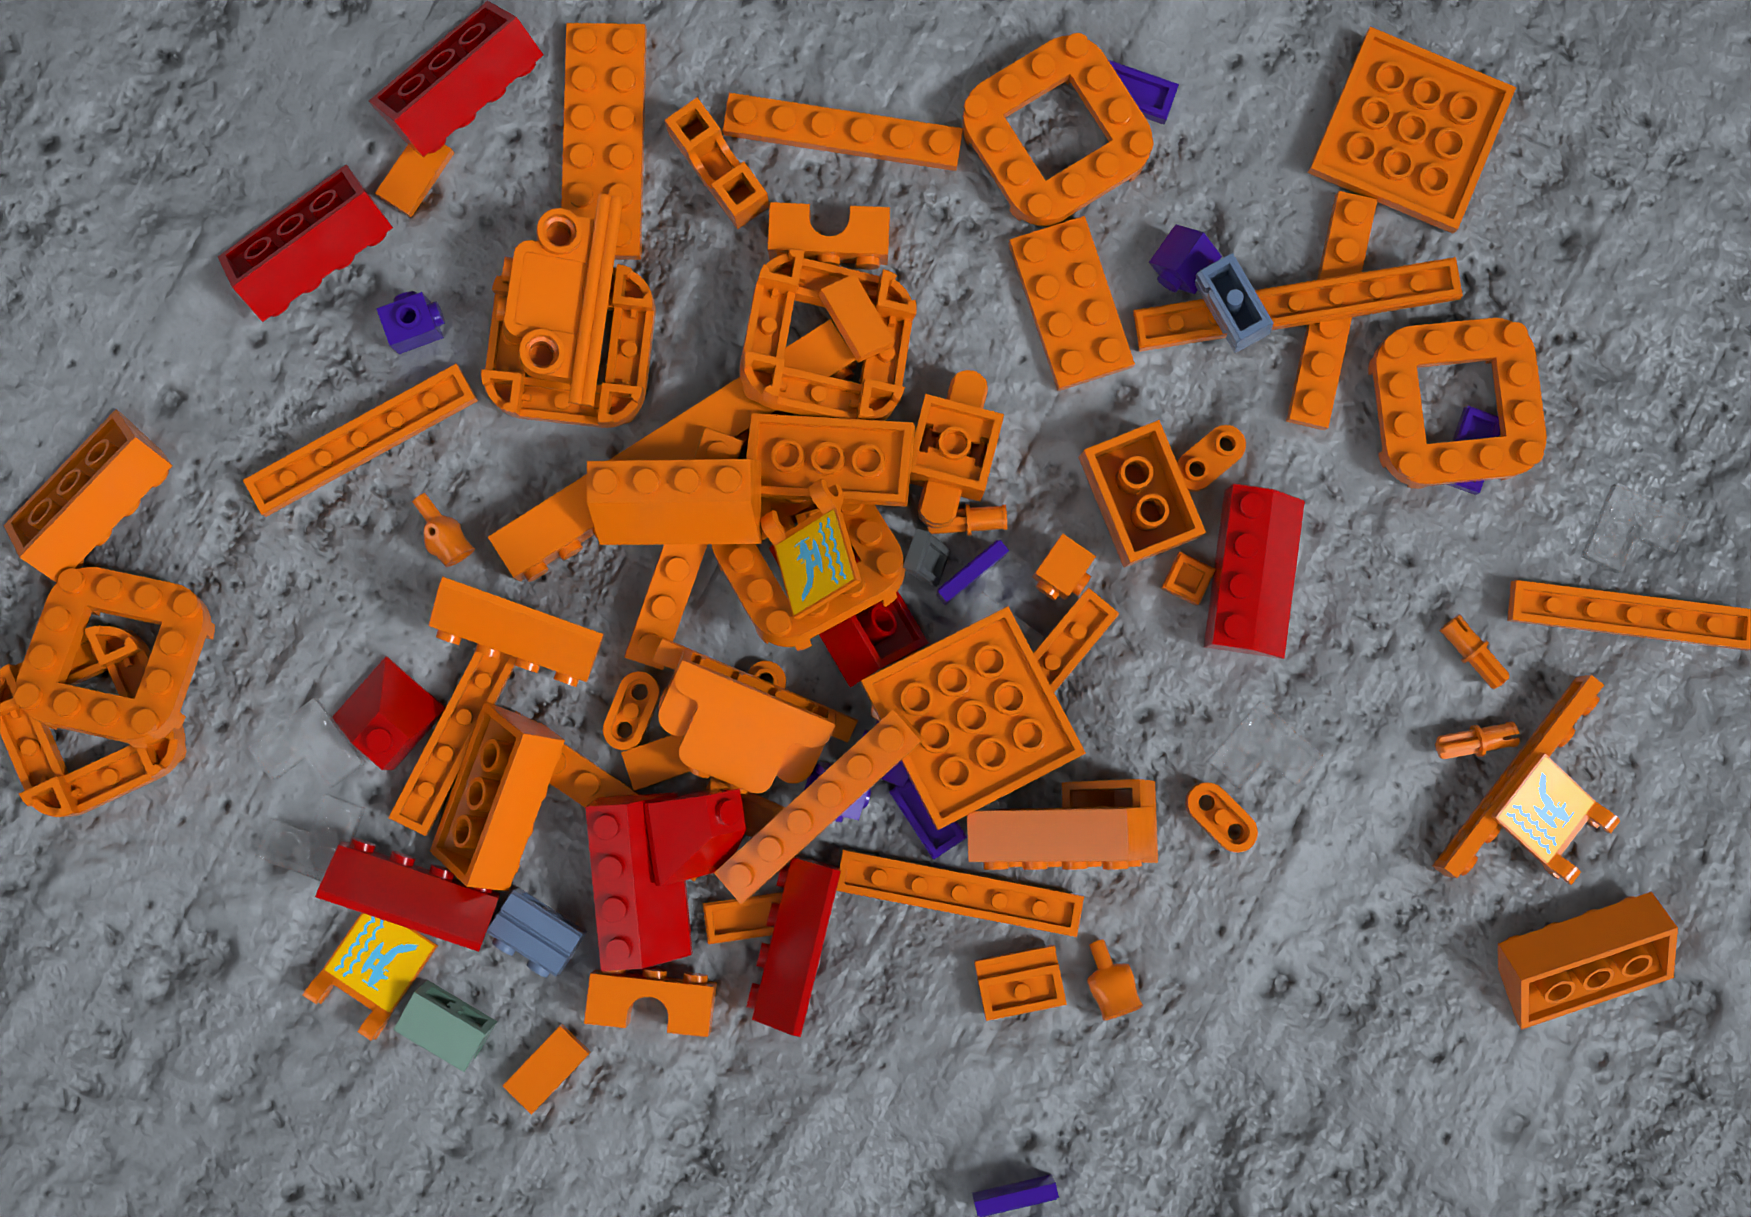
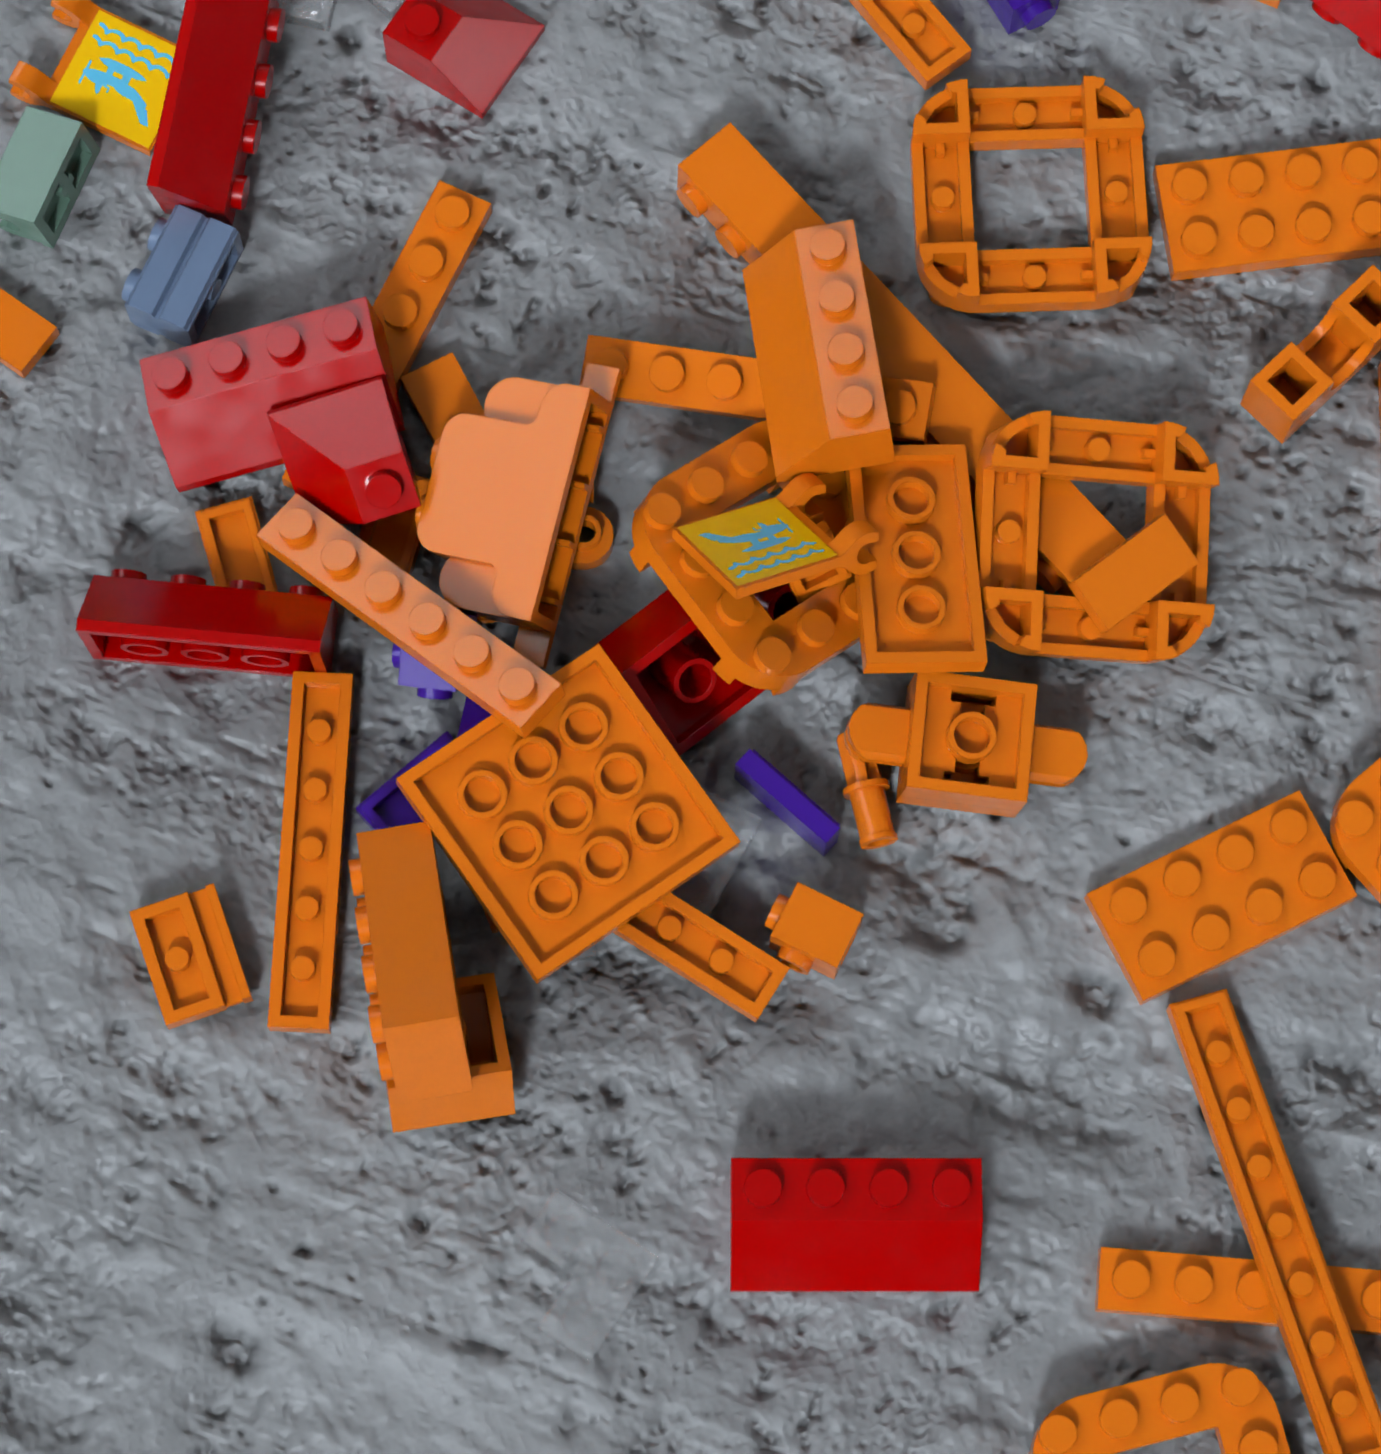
camera: 85 degrees right, 10 degrees down
(442, 533) = (725, 69): orange piece -> none
(447, 746) = (473, 138): orange plate -> none
(496, 798) = (363, 191): orange slope -> none
(514, 630) = (601, 175): orange slope -> none
(562, 296) = (1088, 165): orange brick -> none
(629, 709) = (516, 353): orange plate -> none
(687, 999) = (108, 491): orange arch -> none
(862, 241) = (1256, 578): orange arch -> none
(926, 558) = (796, 725): dark grey tile -> none
(1112, 984) = (202, 1091): orange piece -> none
(1141, 493) = (943, 1028): orange brick -> none
(1182, 257) = (1314, 1048): dark purple brick -> none
(1188, 578) = (829, 1126): orange tile -> none
(1211, 456) = (1017, 1137): orange plate -> none
(1221, 816) = (473, 1222): orange plate -> none
(1233, 303) = (1256, 1115): sand blue brick -> none

